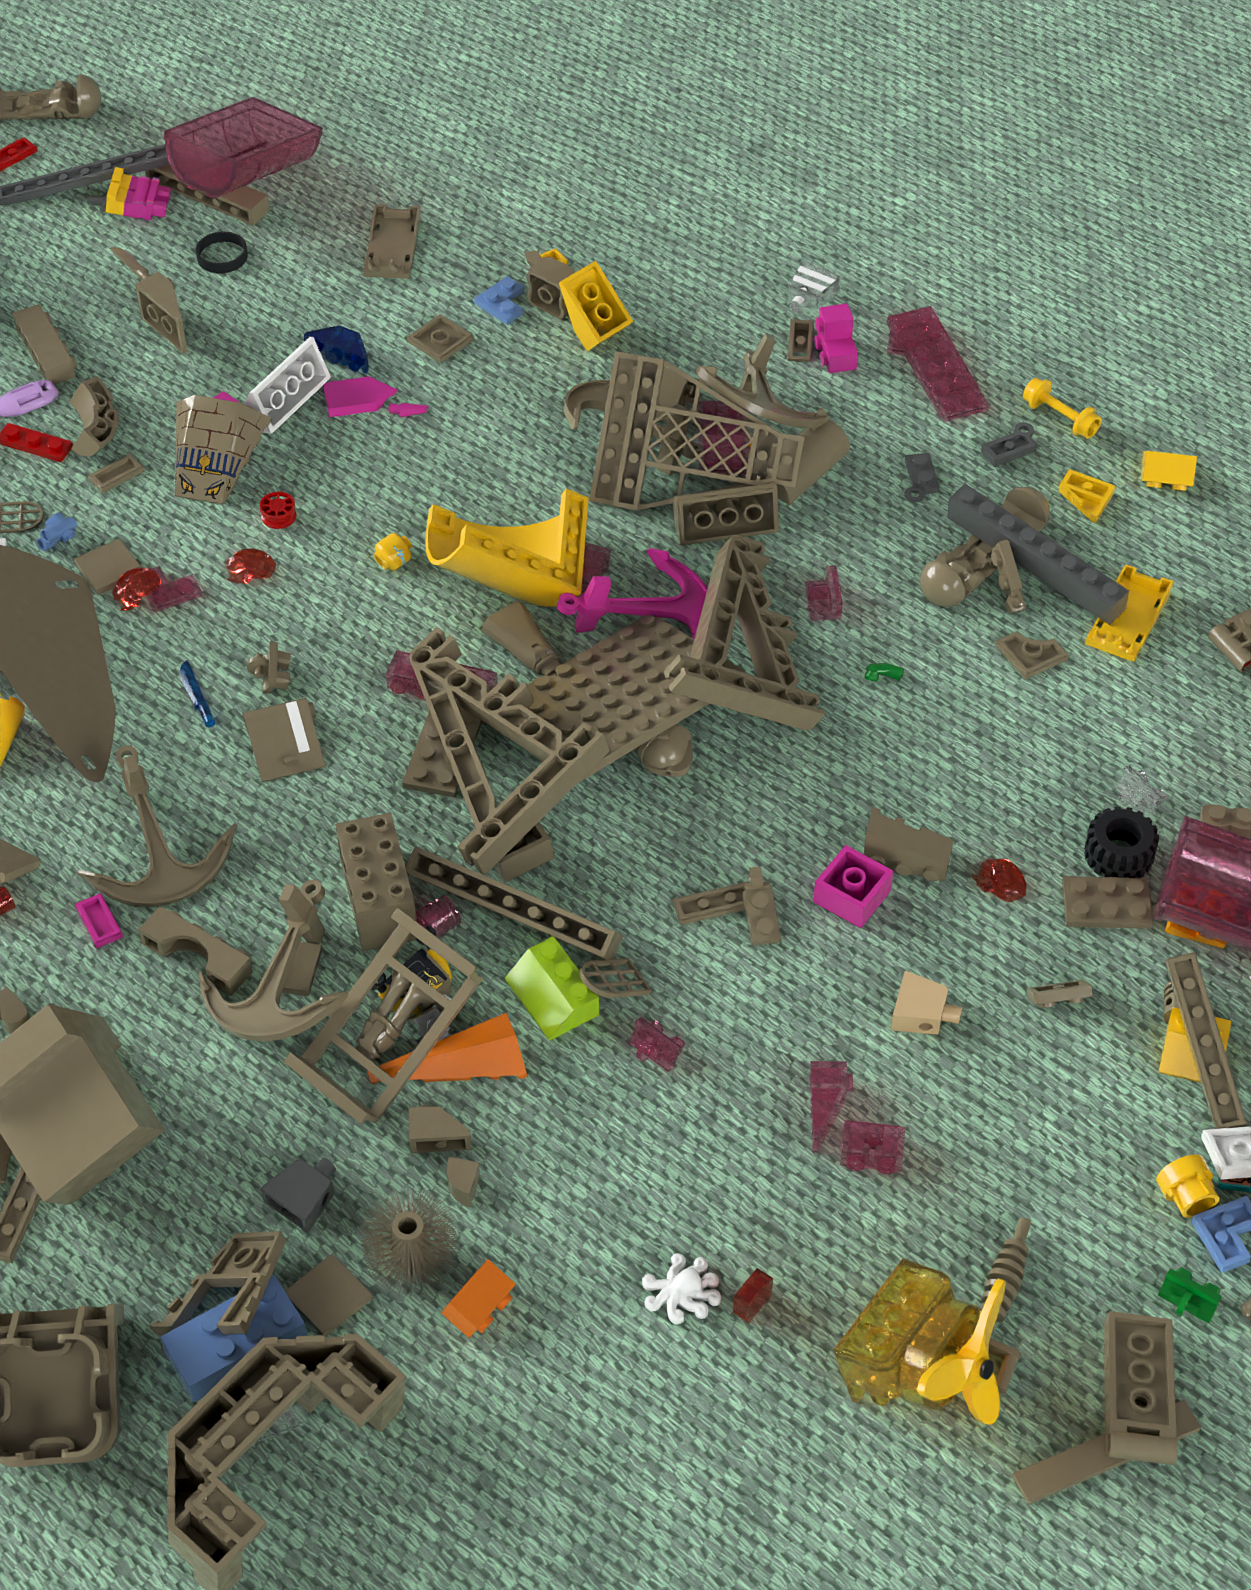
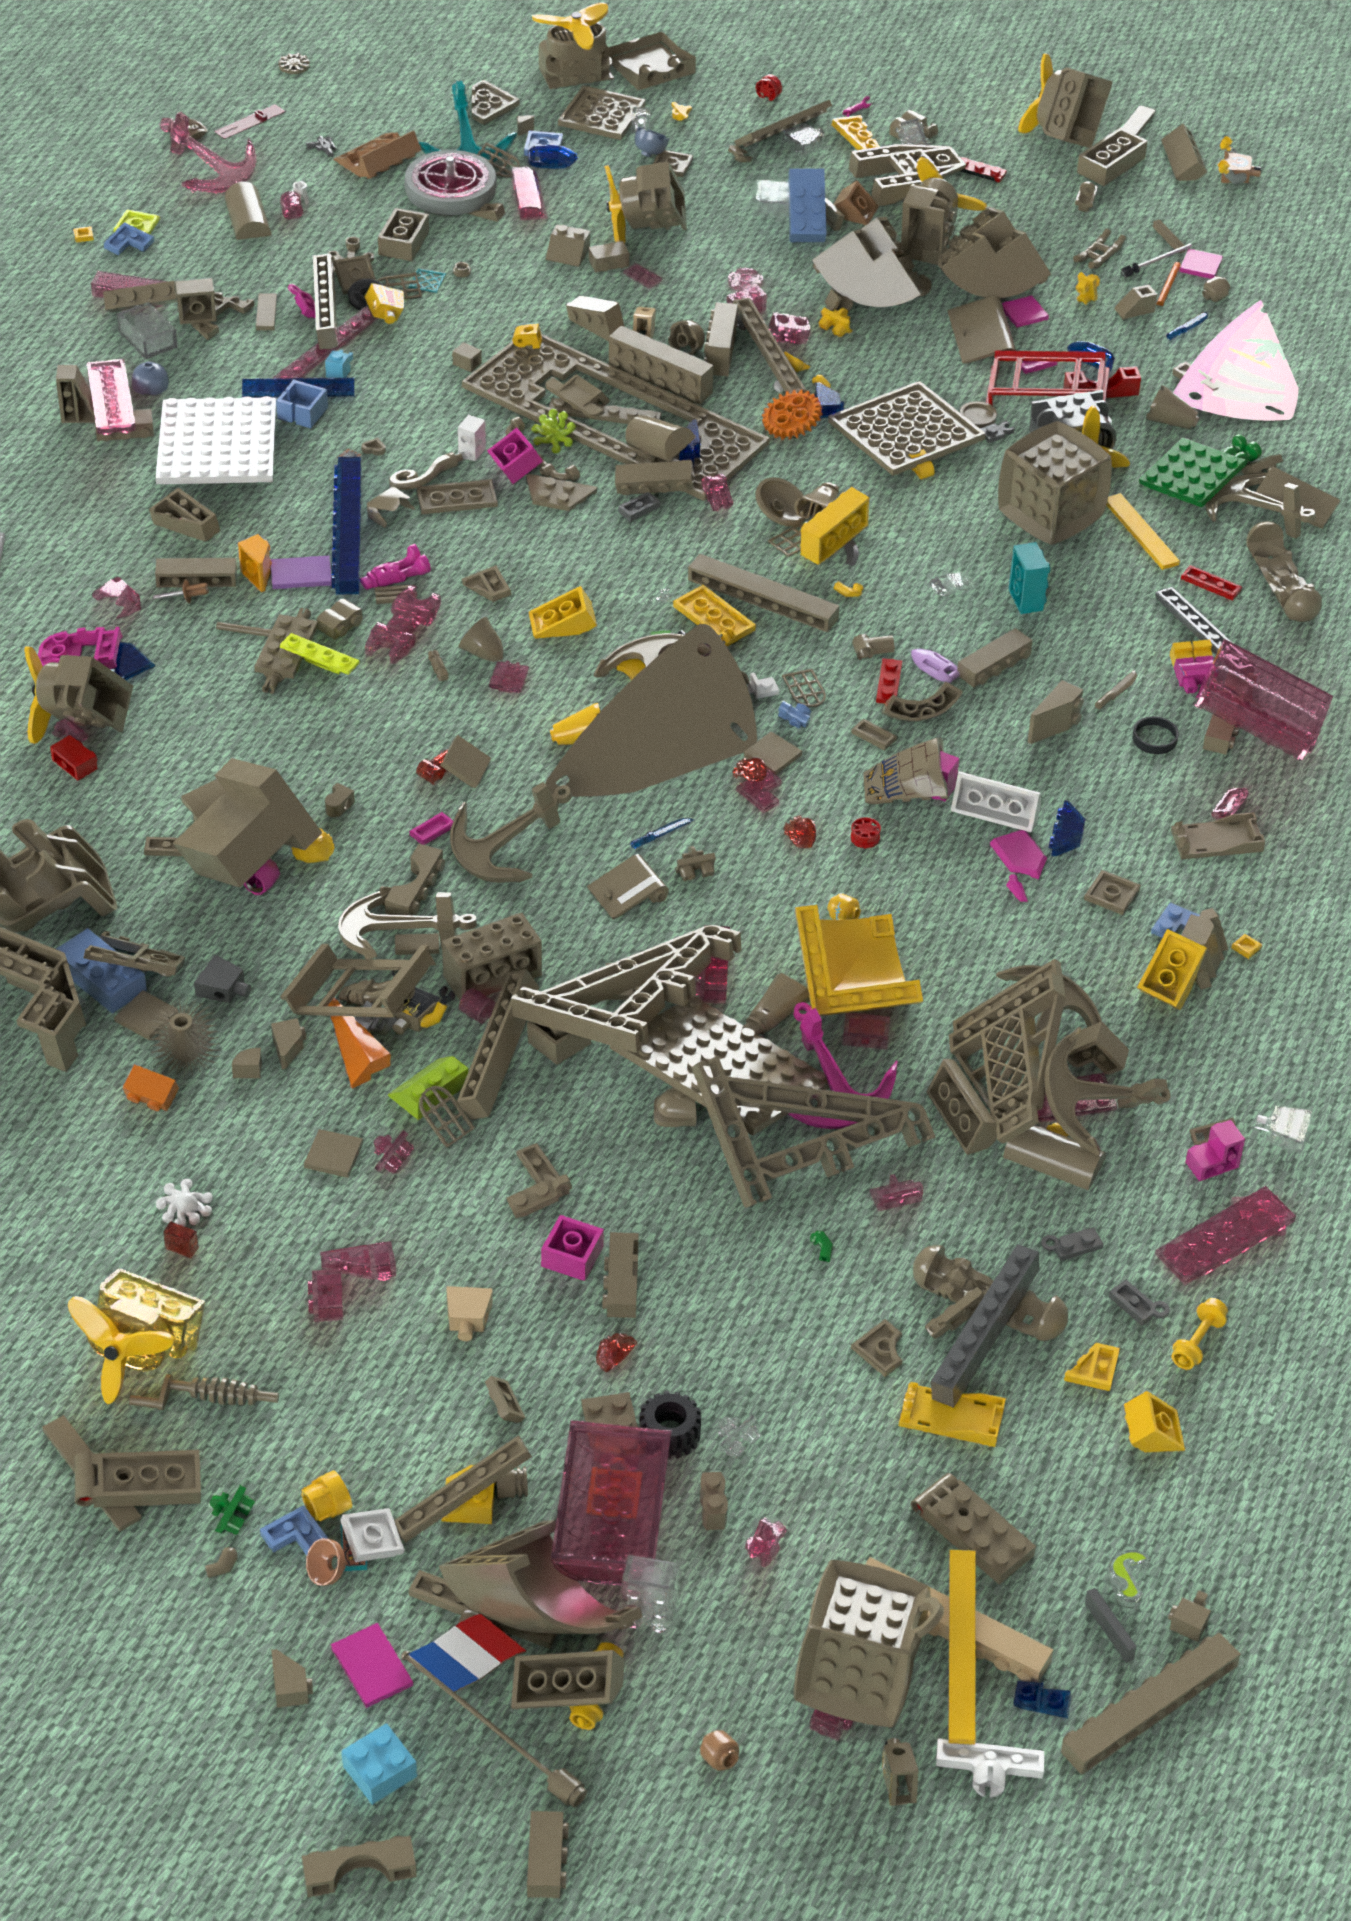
camera: 75 degrees right, 5 degrees down
(348, 222) = (1230, 802): none -> clear pink tile
(635, 1110) = (333, 1153): none -> dark tan tile

